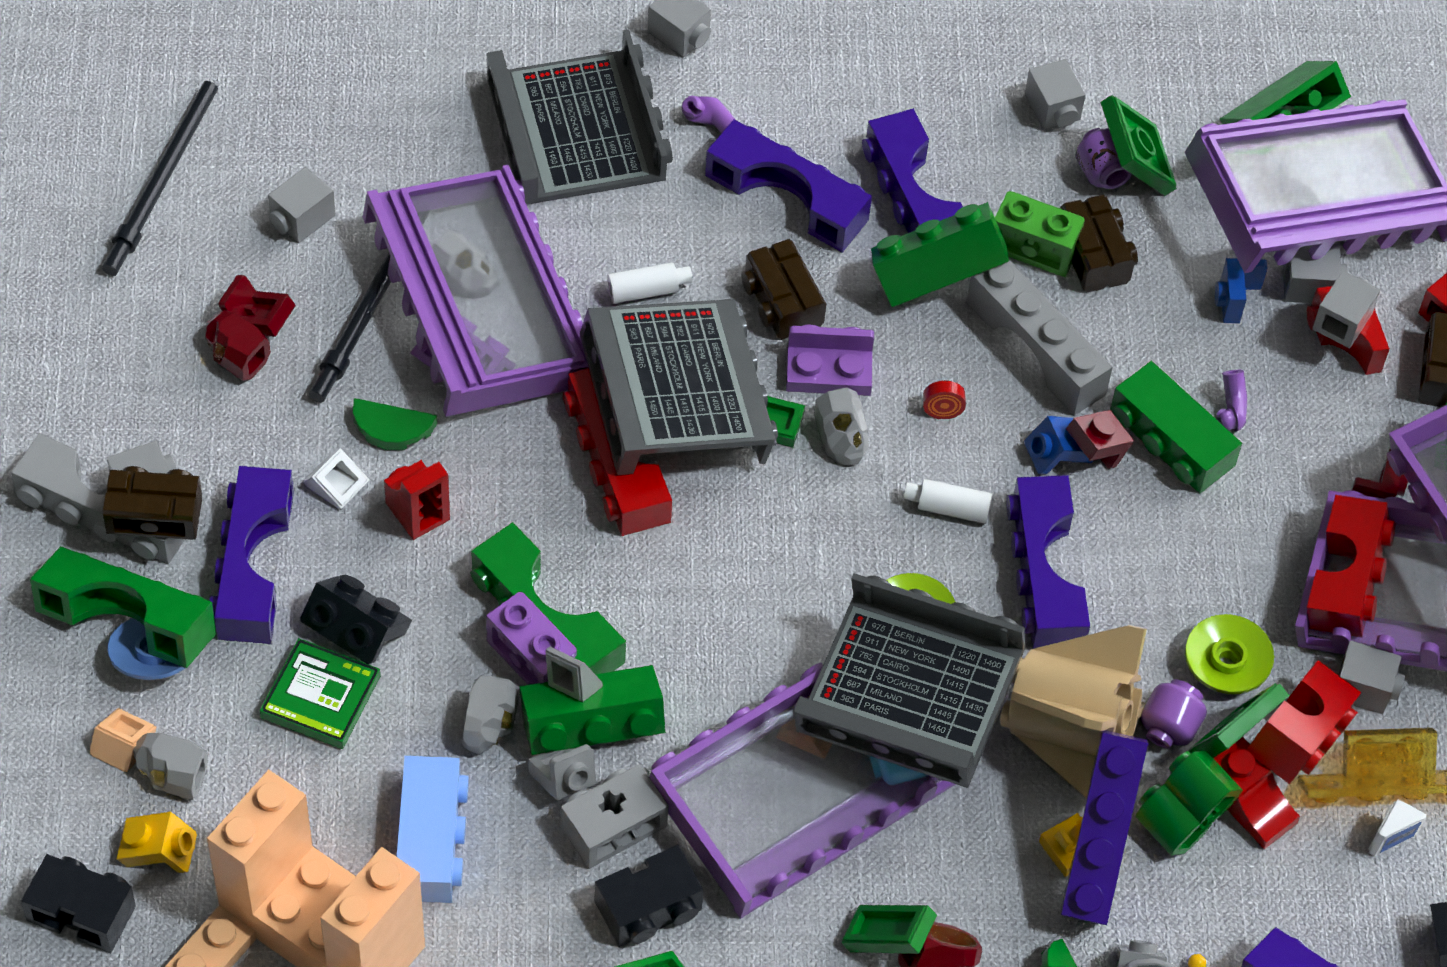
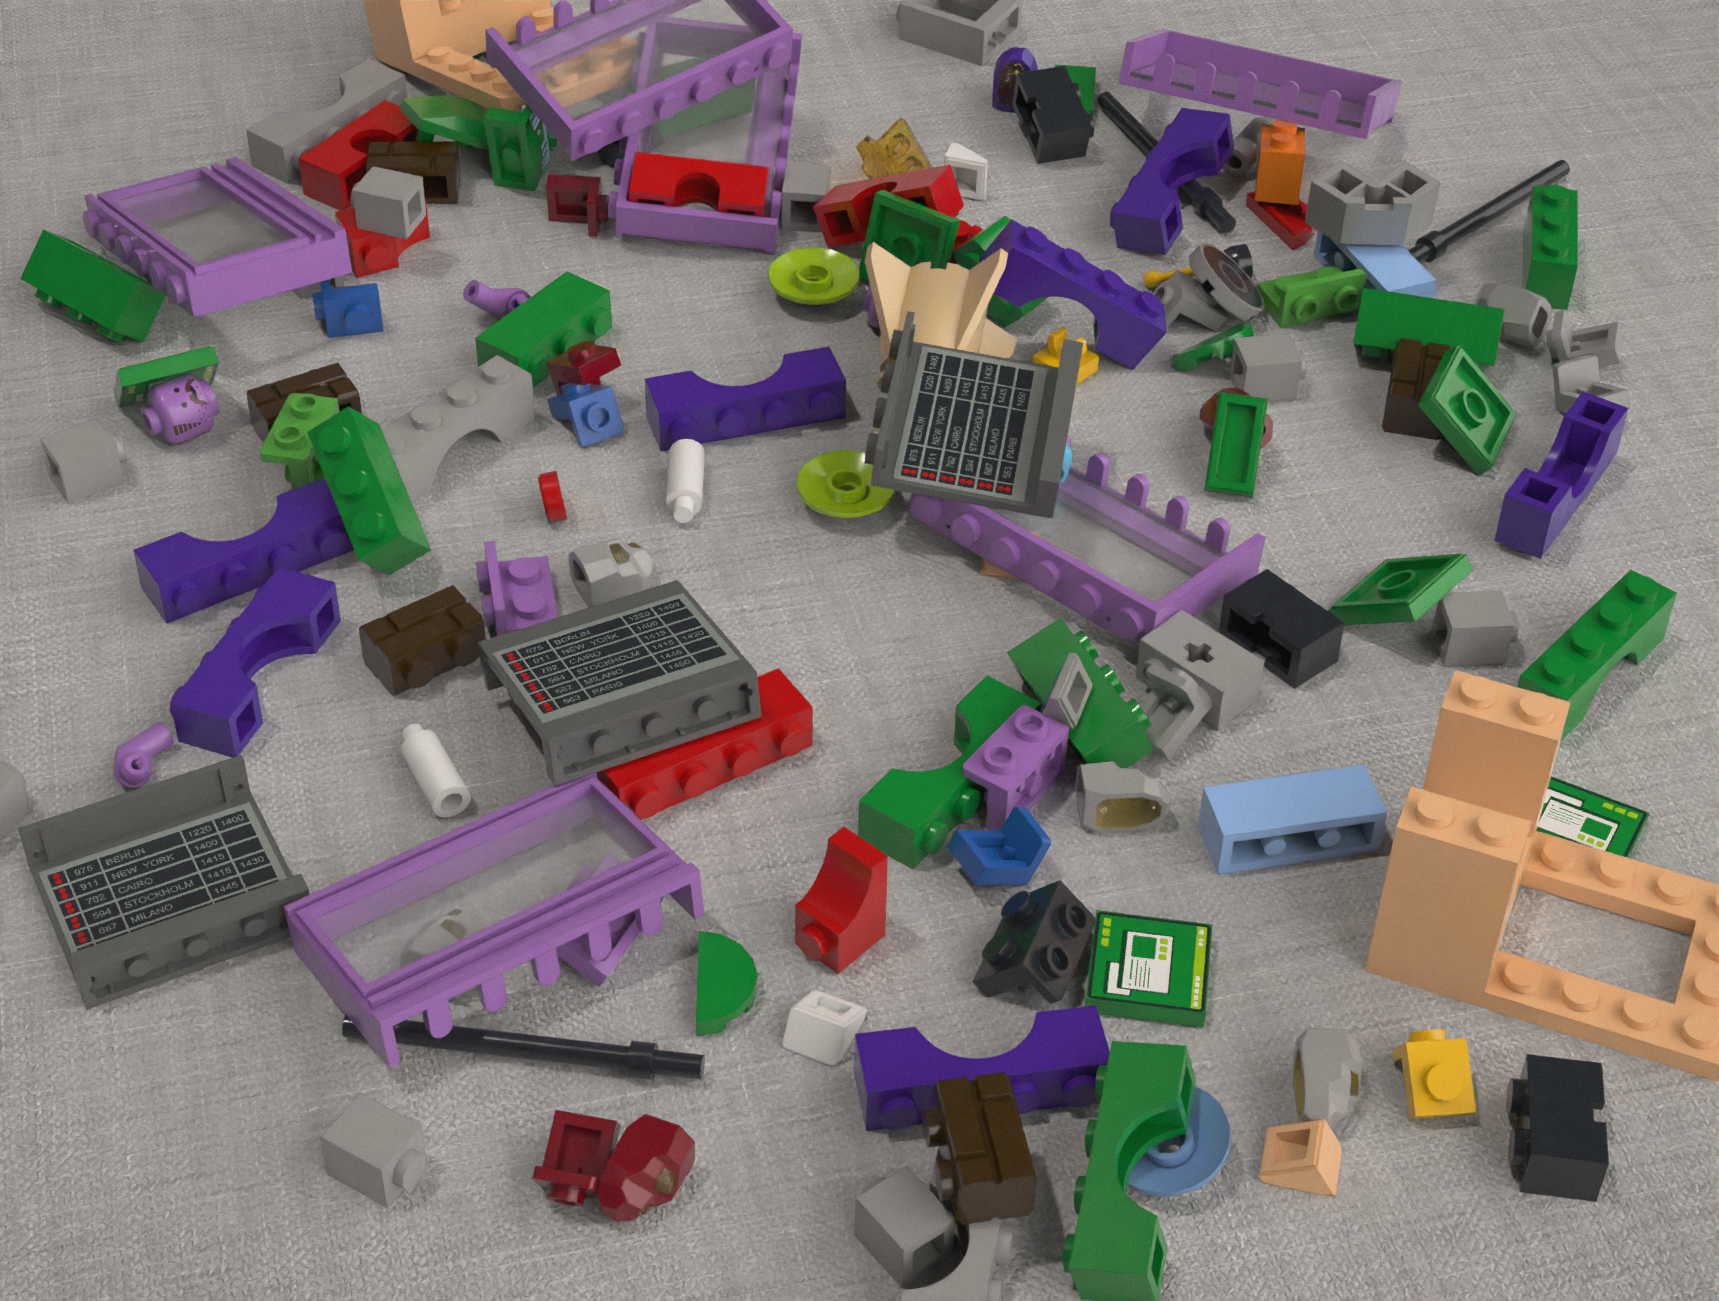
camera: 100 degrees left, 15 degrees down
(452, 615) = (1002, 855): none -> blue bracket

